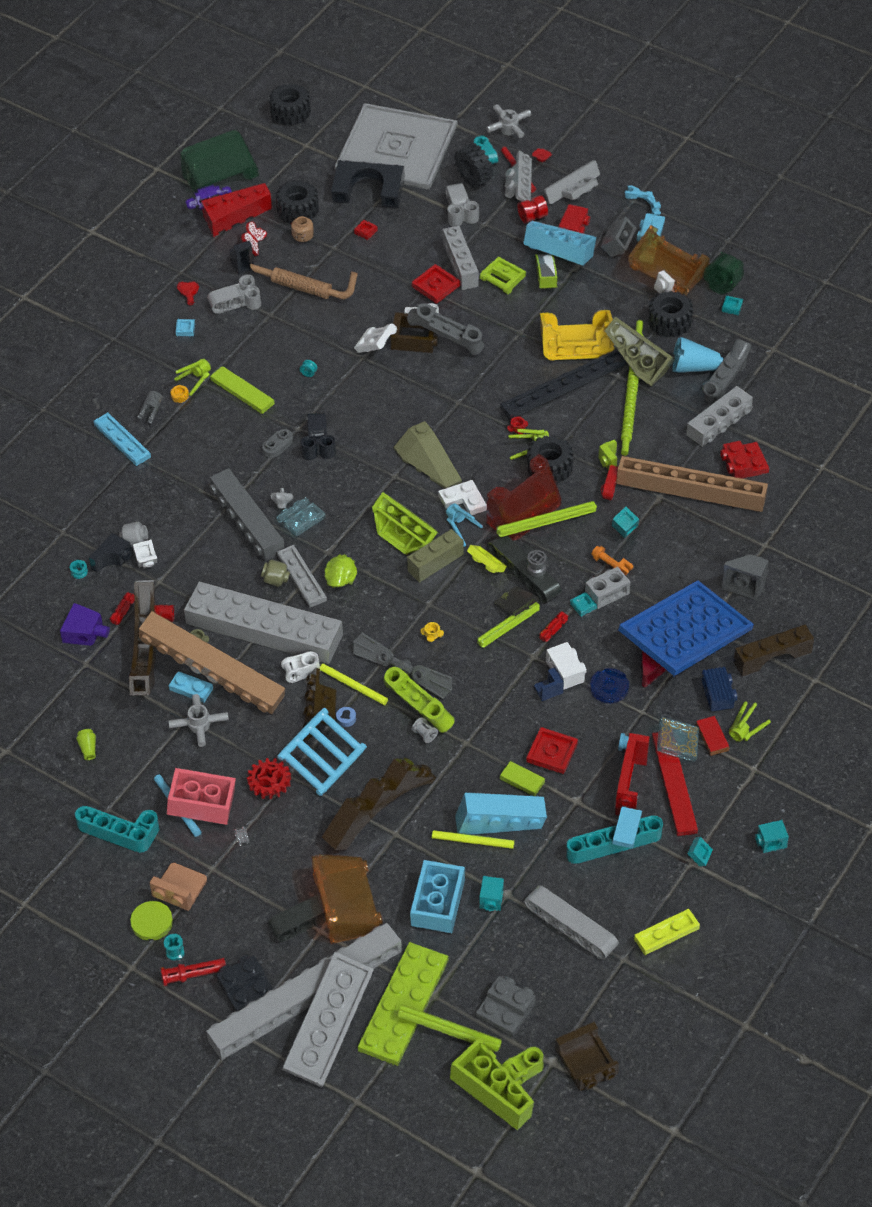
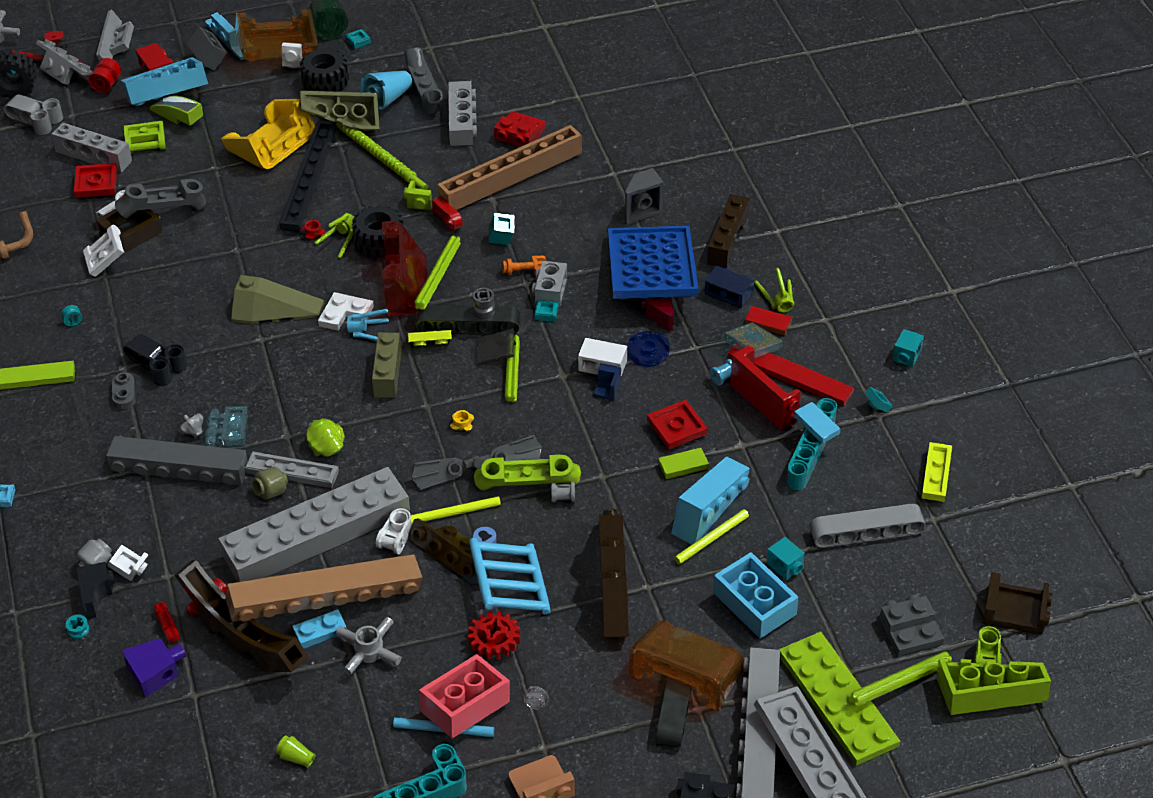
camera: 50 degrees left, 5 degrees down
(401, 526) = (331, 364): lime wedge -> none
(553, 626) = (548, 342): red axle -> none
(634, 193) = (170, 15): medium azure piece -> none

